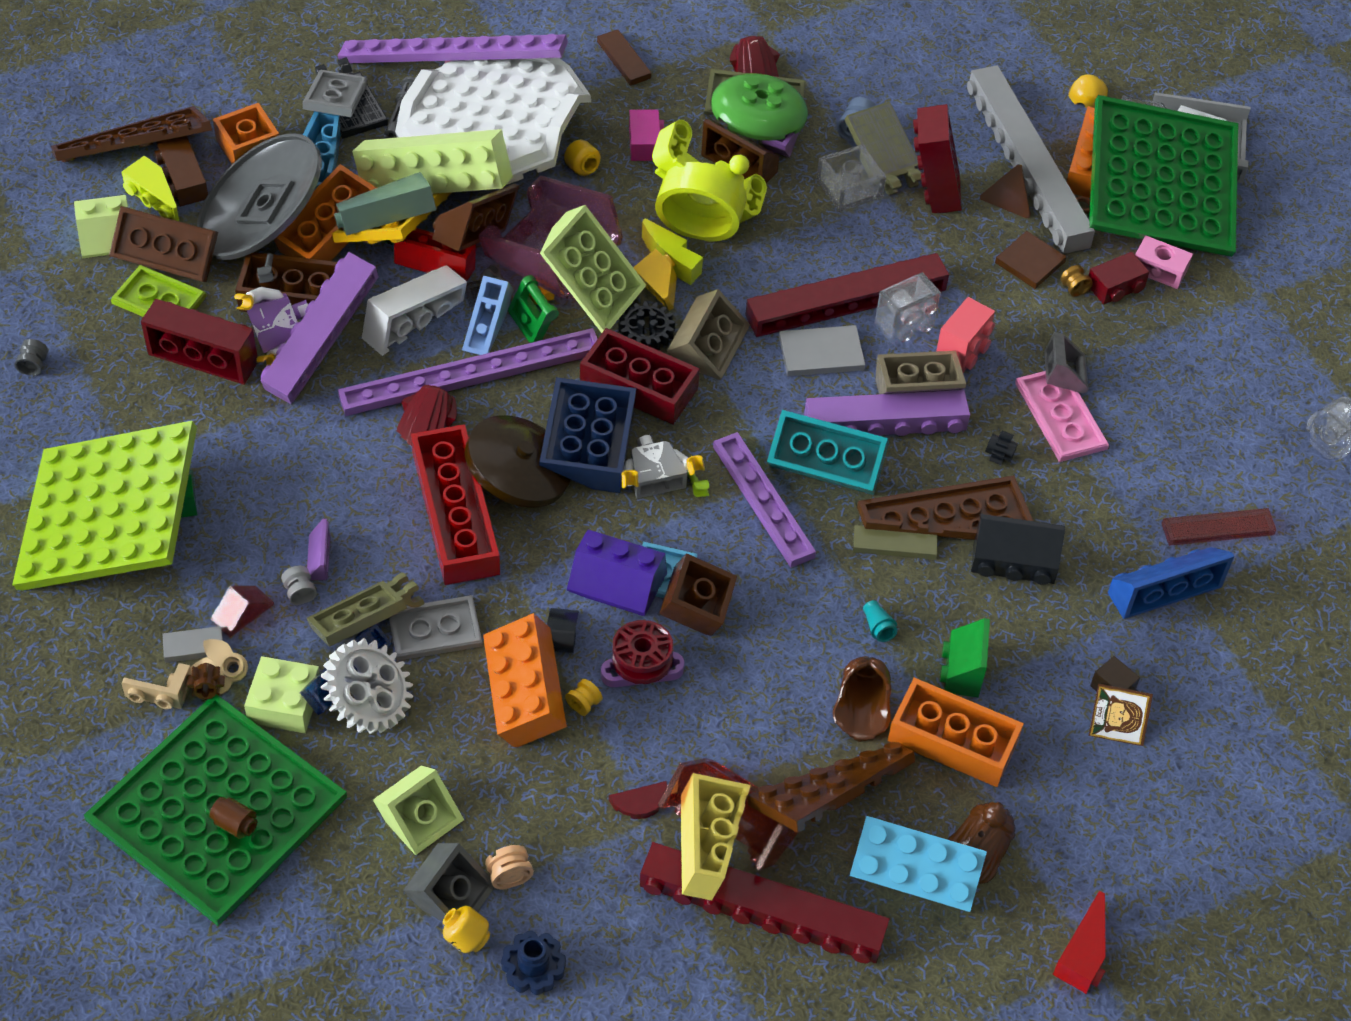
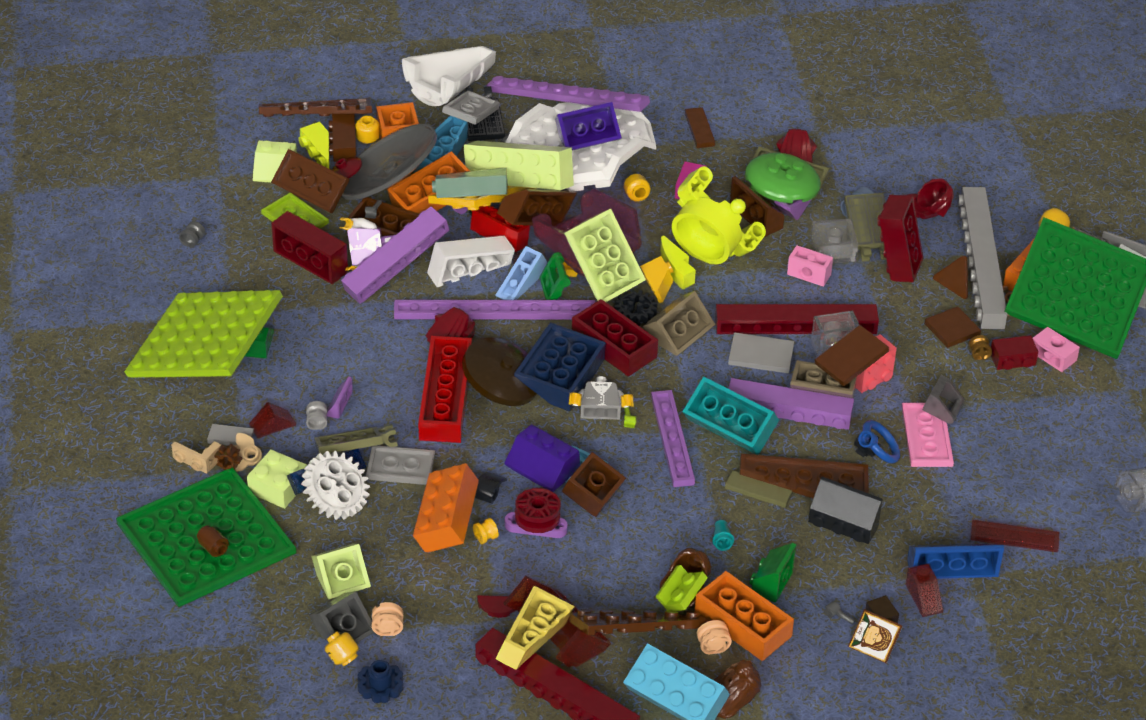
camera: 20 degrees right, 10 degrees down
(203, 212) = (347, 167): none -> dark red dish
(210, 153) = (367, 129): none -> yellow head
(283, 53) = (443, 75): none -> white cone
(504, 93) = (588, 126): none -> dark purple slope
(836, 218) = (810, 265): none -> bright pink brick
(867, 717) = (680, 589): none -> lime bracket
(930, 773) = (713, 637): none -> light nougat wheel
(941, 87) = (933, 199): none -> dark red hair
(948, 335) = (851, 355): none -> reddish brown tile
(1000, 425) = (873, 444): none -> blue piece
(1054, 688) = (834, 609): none -> dark grey hand
(1150, 632) = (924, 590): none -> clear red slope

